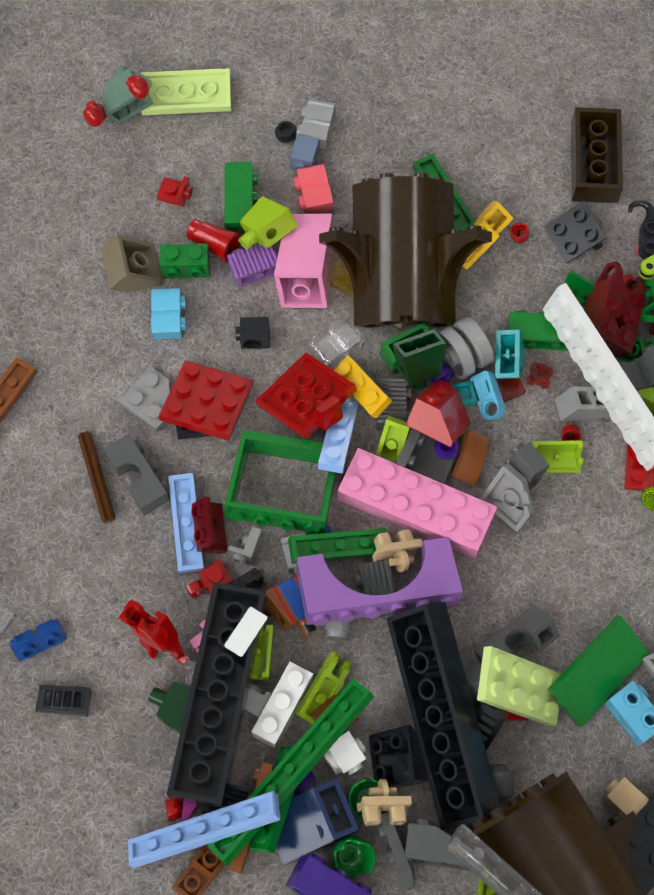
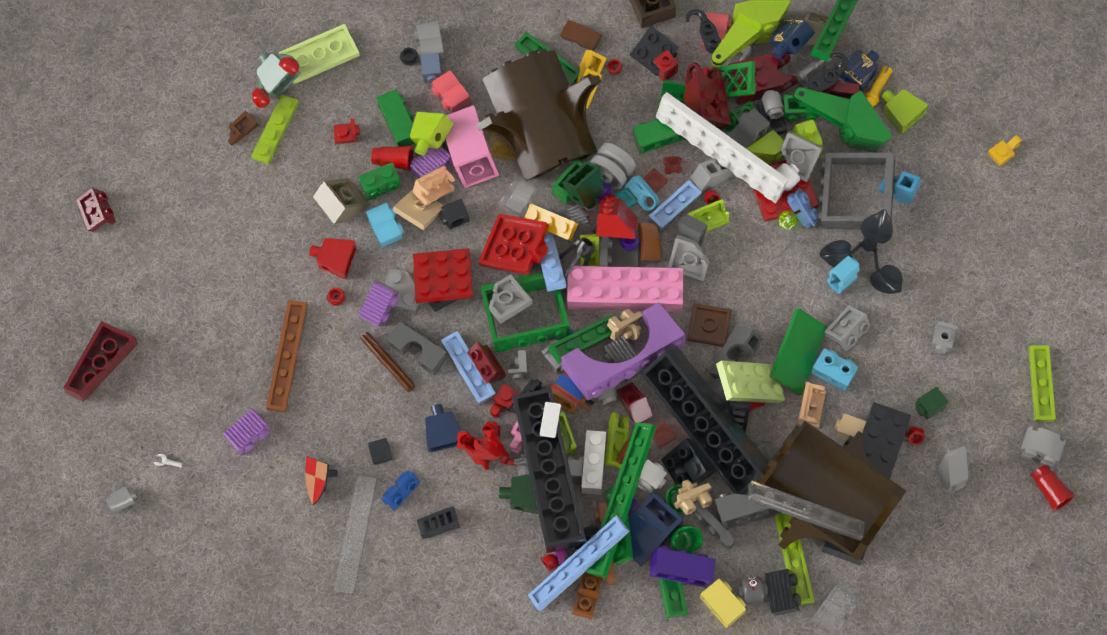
camera: 20 degrees left, 0 degrees up
(36, 581) = (380, 451): none -> black slope
(61, 141) = (241, 127): none -> reddish brown slope
(72, 369) = (336, 292): none -> red plate
(94, 327) = (335, 256): none -> red torso
(97, 157) = (275, 129): none -> lime plate
(115, 403) = (379, 303): none -> medium lavender brick
(118, 584) = (441, 429): none -> dark blue torso
(178, 612) = (494, 427): none -> red plate
(214, 309) = (416, 211): none -> tan plate
(244, 289) = (434, 185): none -> light nougat hinge
(266, 459) = (508, 299): none -> light grey plate
(365, 650) = (634, 403): none -> dark red slope
(384, 705) = (663, 435): none -> clear red plate
(385, 433) = (584, 247): none -> black plant
(496, 181) = (581, 35): none -> reddish brown slope
(501, 590) = (709, 325): none -> reddish brown tile
(509, 354) = (645, 158): teal slope -> none
(522, 425) = (675, 205): none -> light blue plate
(583, 254) = (667, 64): none -> red bracket
(587, 747) = (812, 404): none -> light nougat hinge

